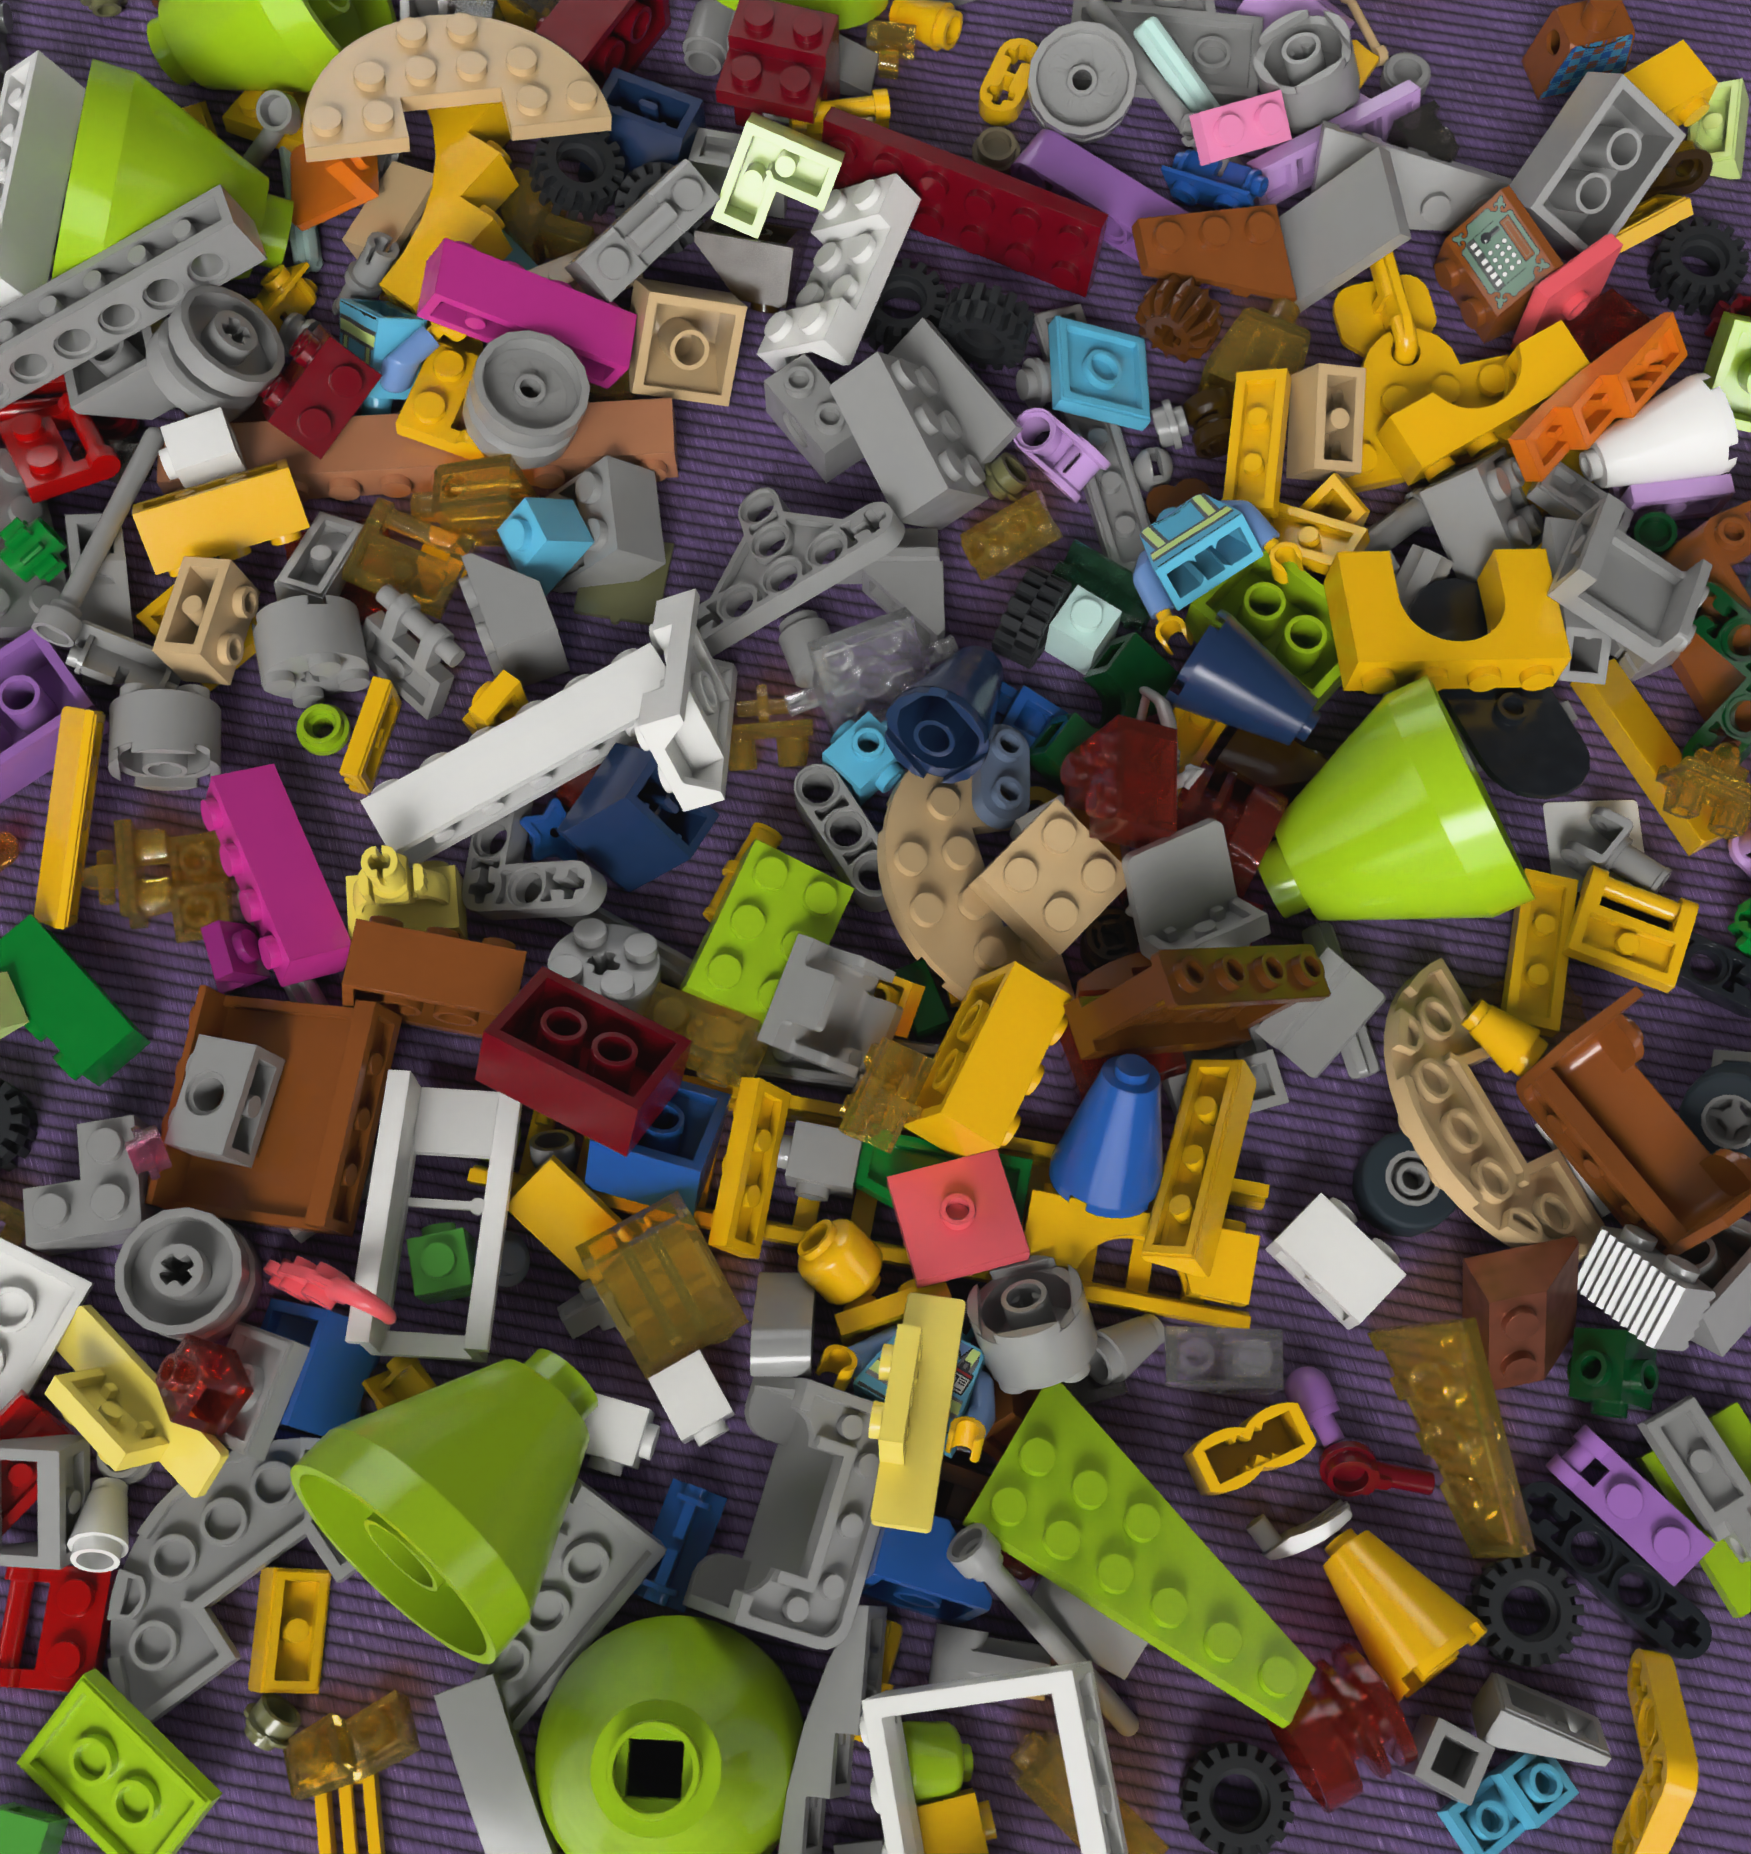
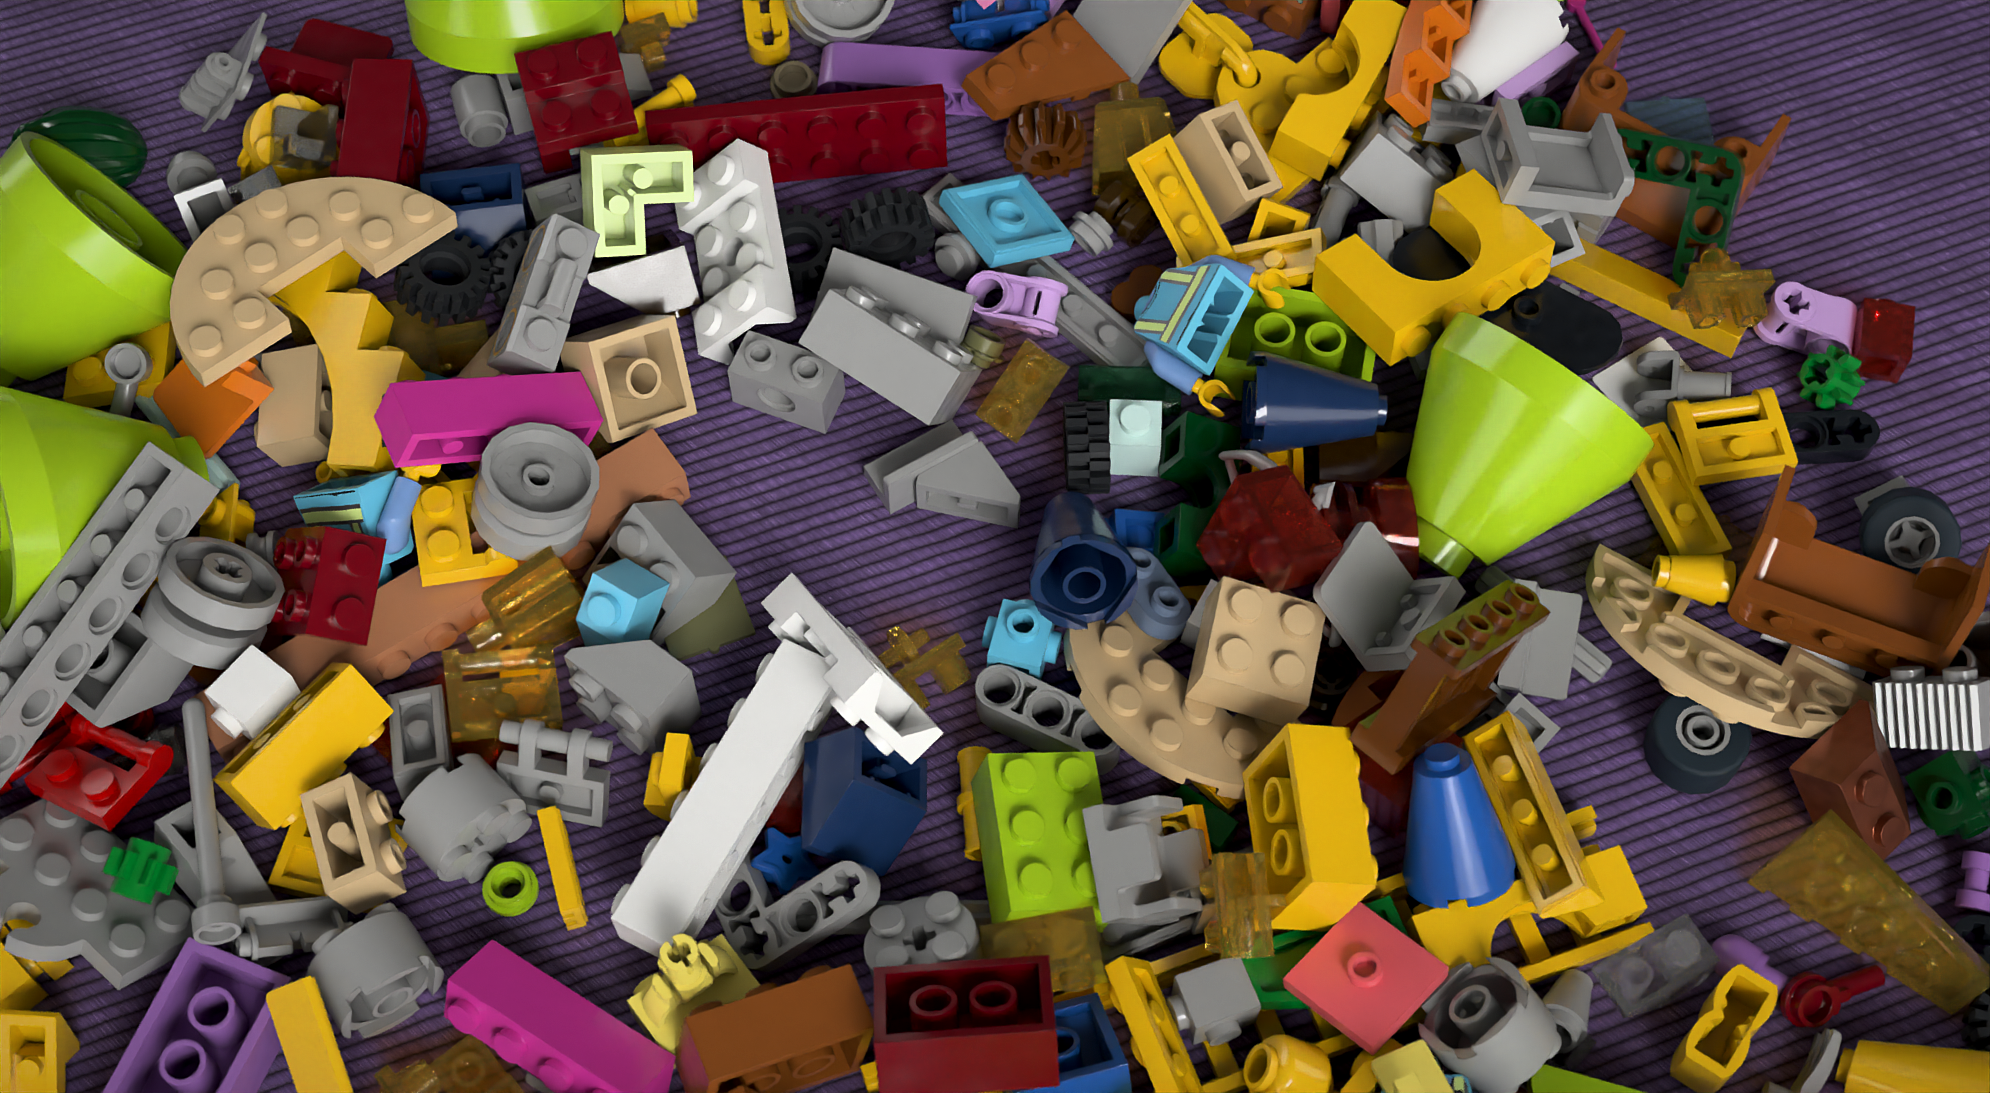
camera: 30 degrees left, 10 degrees down
(366, 273) = (302, 465): light grey pin -> none
(795, 633) = (910, 579): light grey brick -> none
(807, 542) = (857, 495): light grey beam -> none
(867, 668) = (979, 565): clear plate -> none
(1144, 471) = (1094, 279): light grey hinge -> none
(1337, 1260) = (1687, 834): white brick -> none

